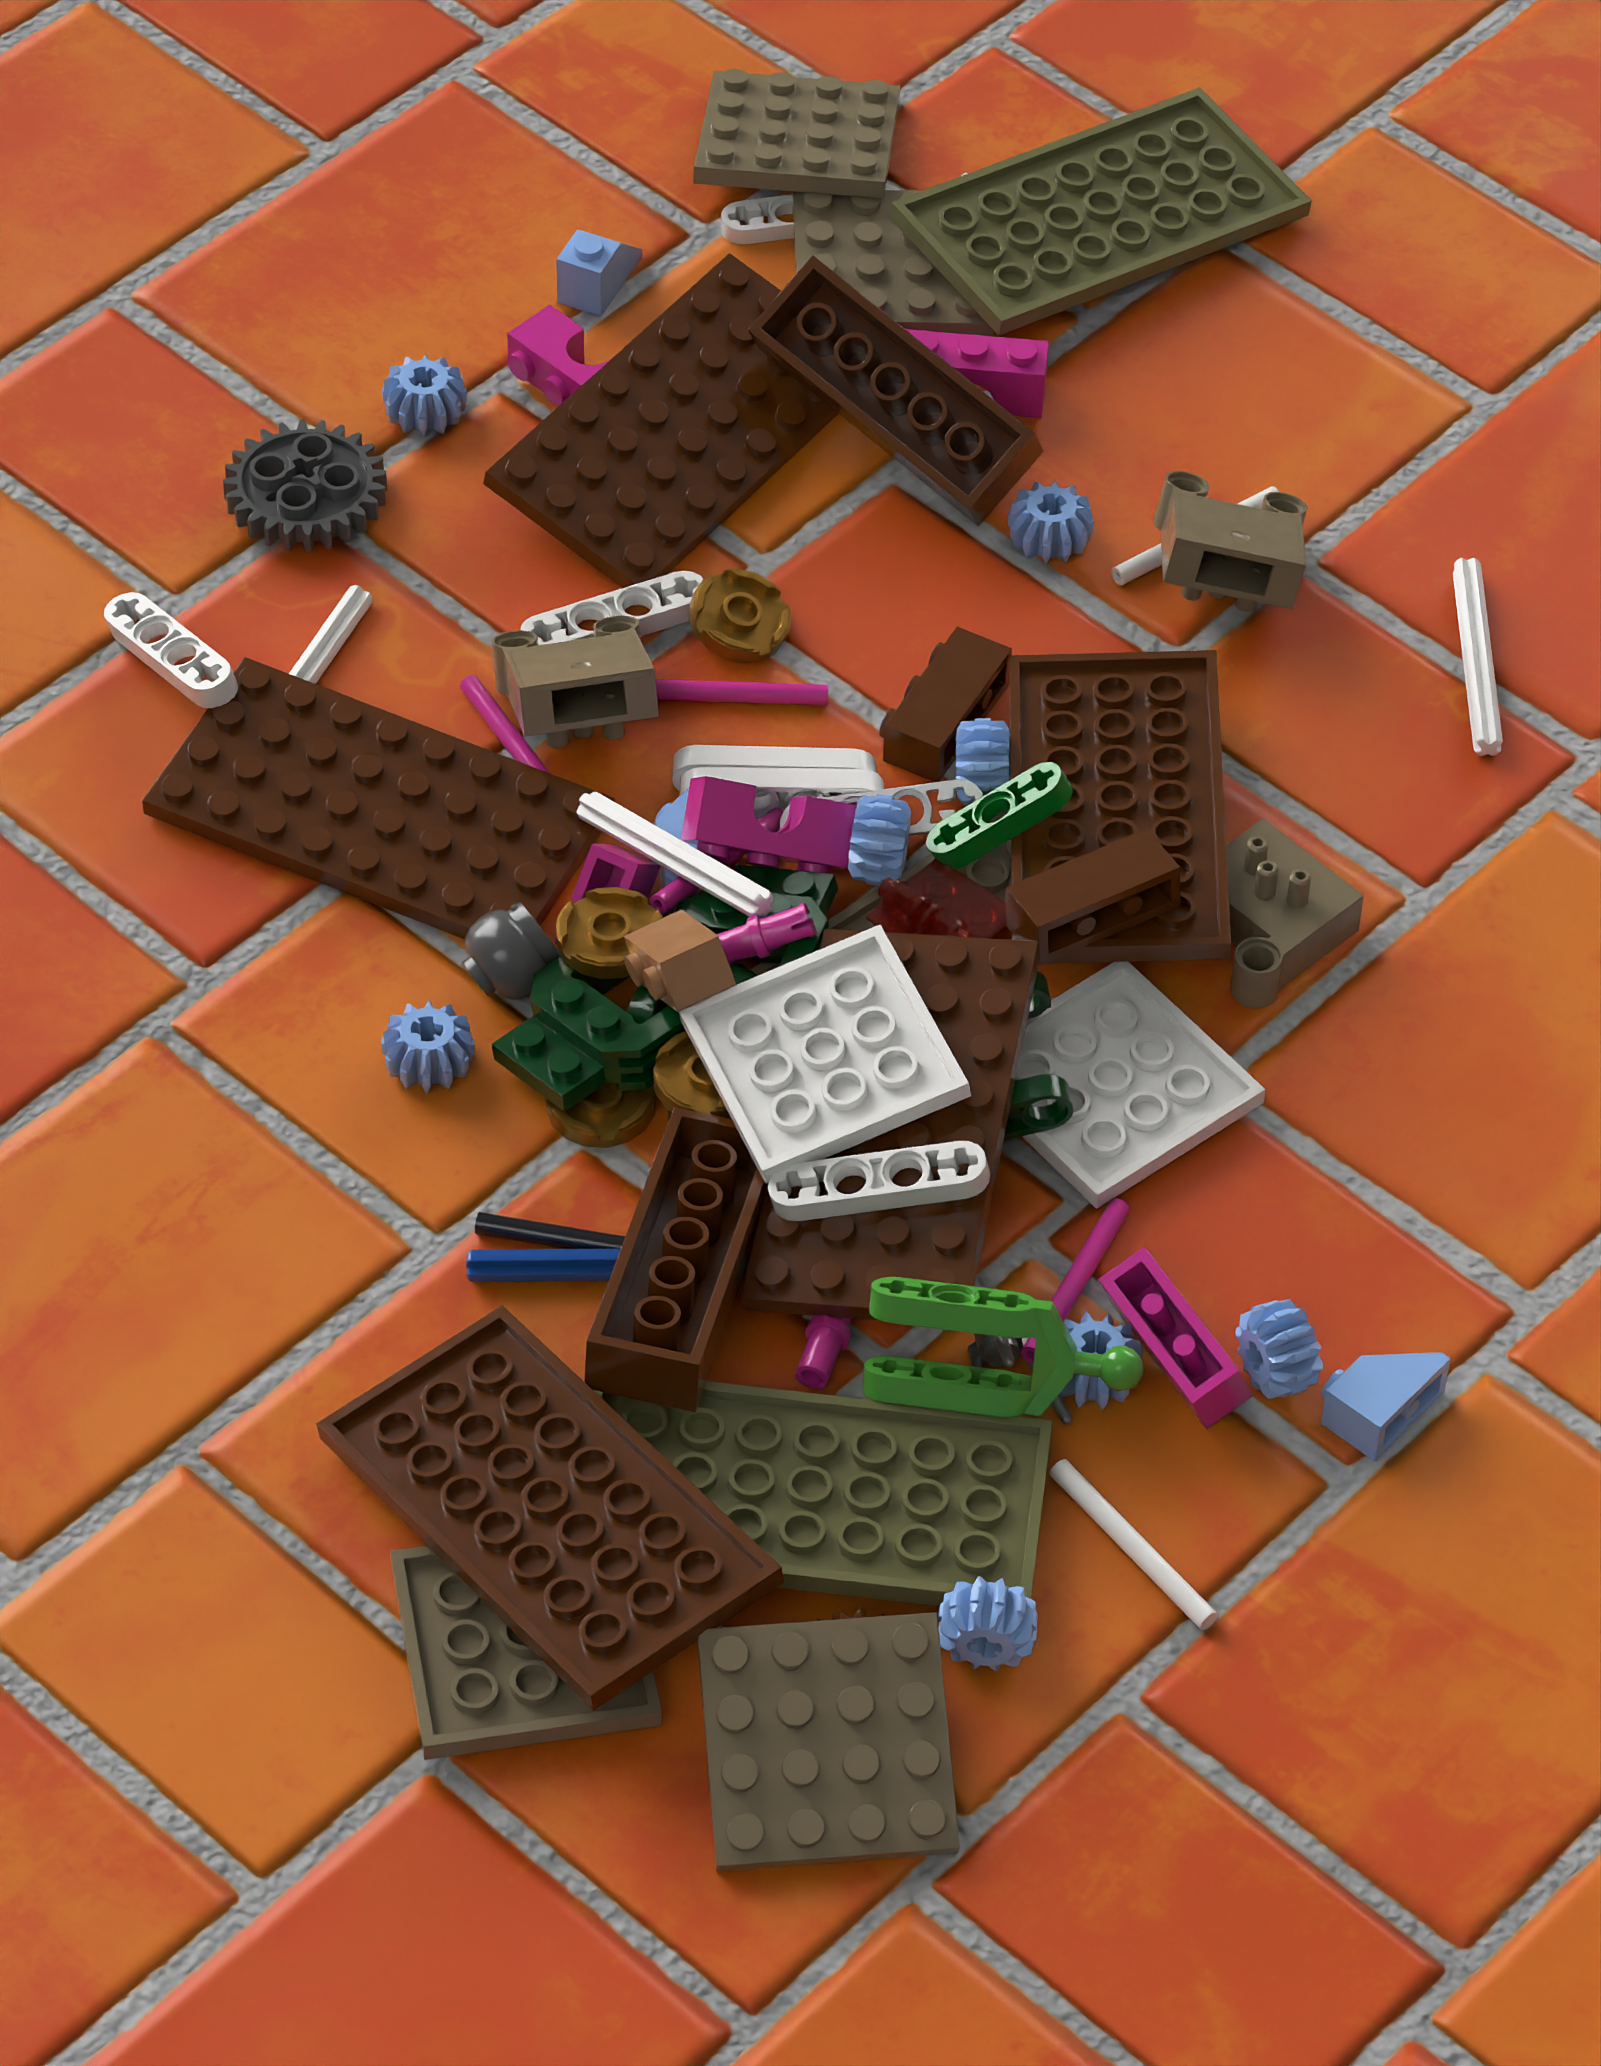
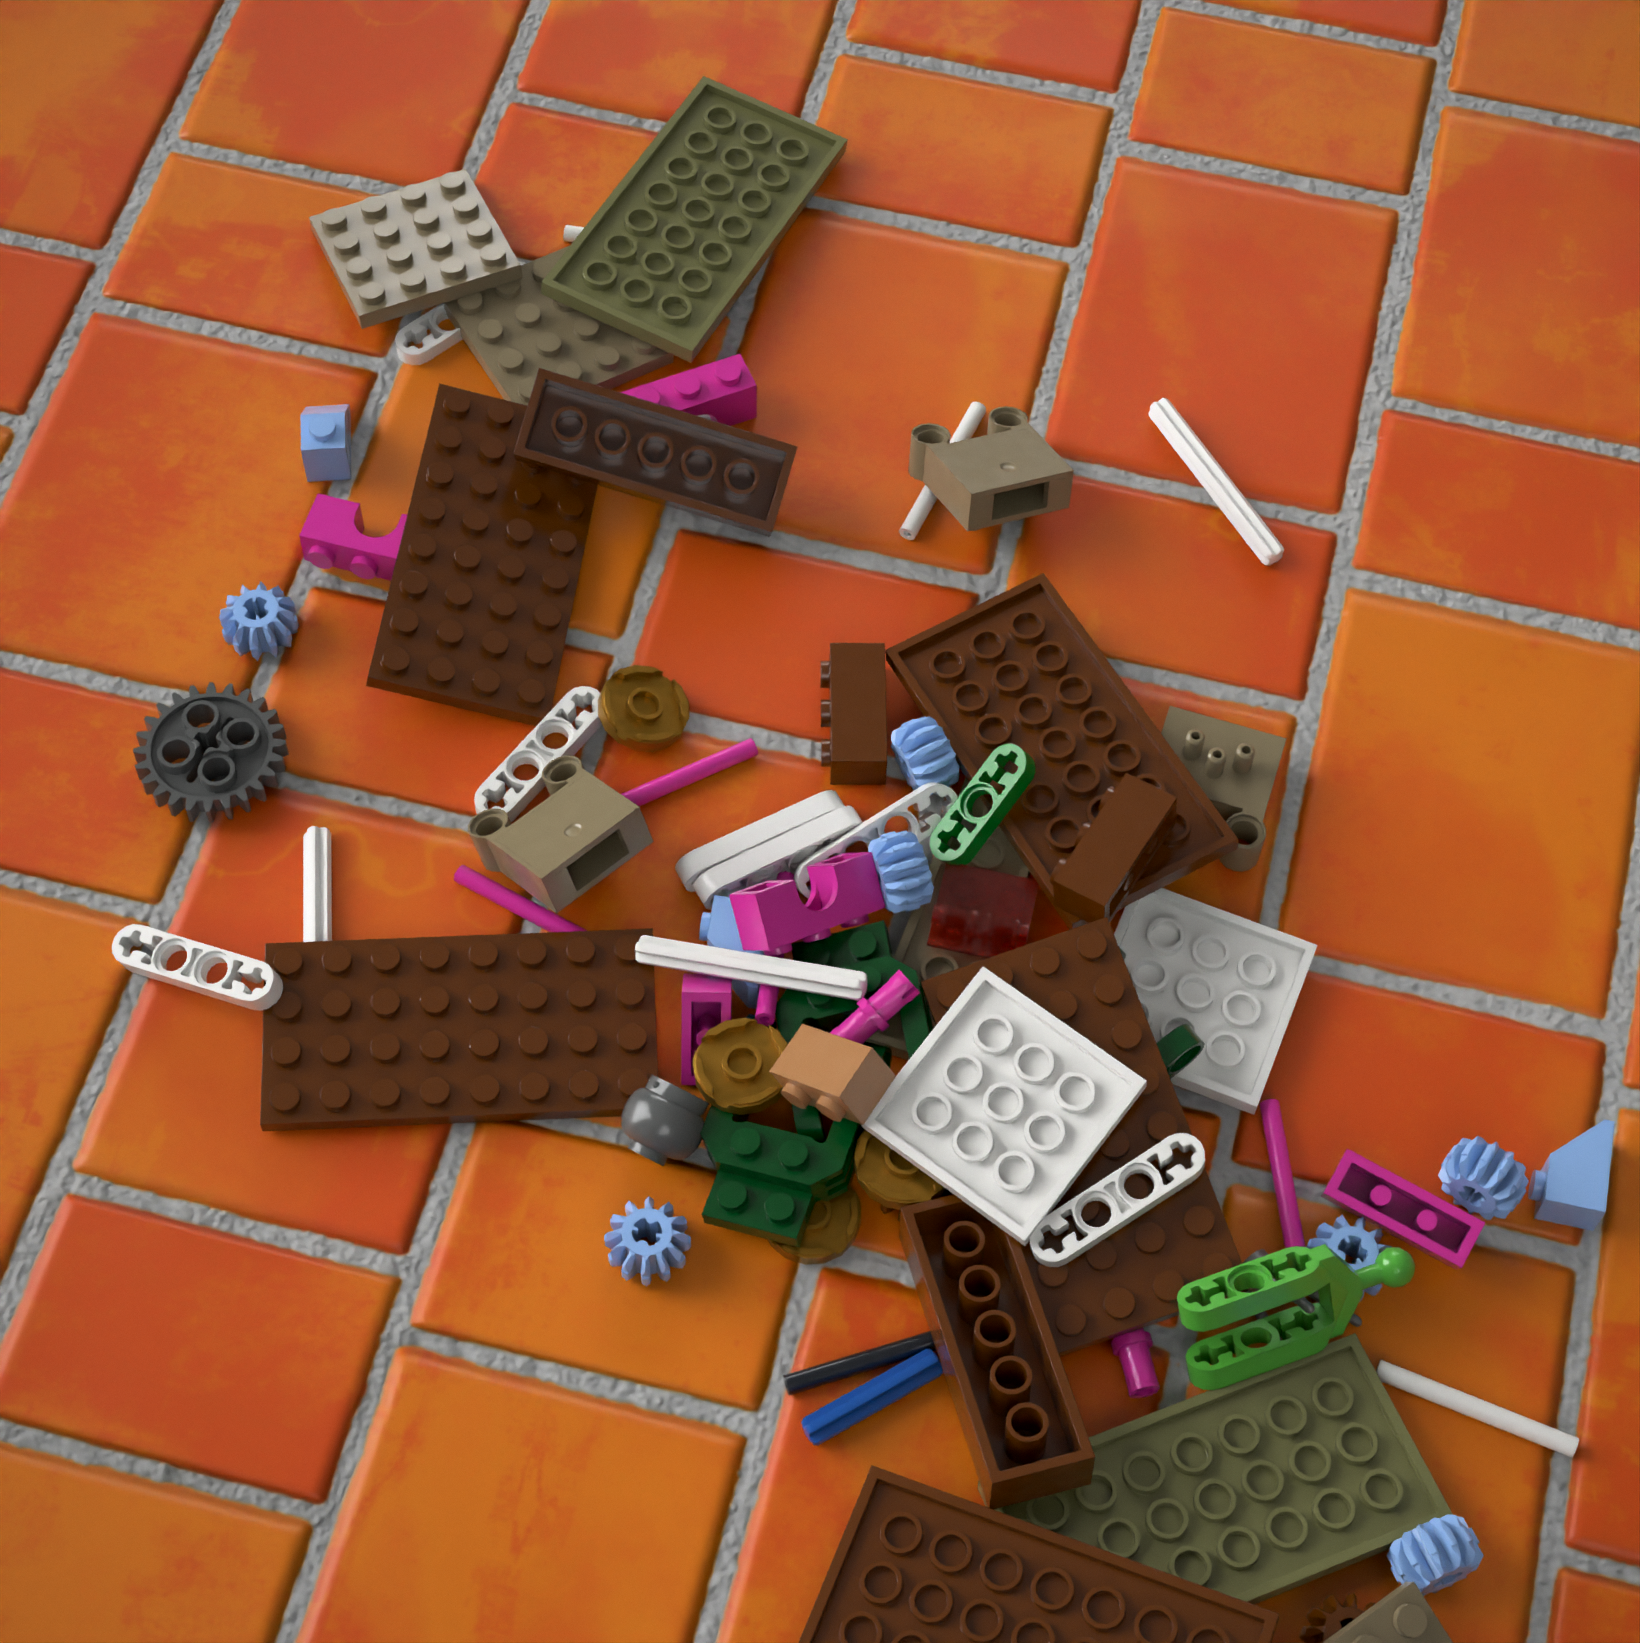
camera: 30 degrees left, 10 degrees up
(1050, 522) = (831, 510): light blue gear -> none

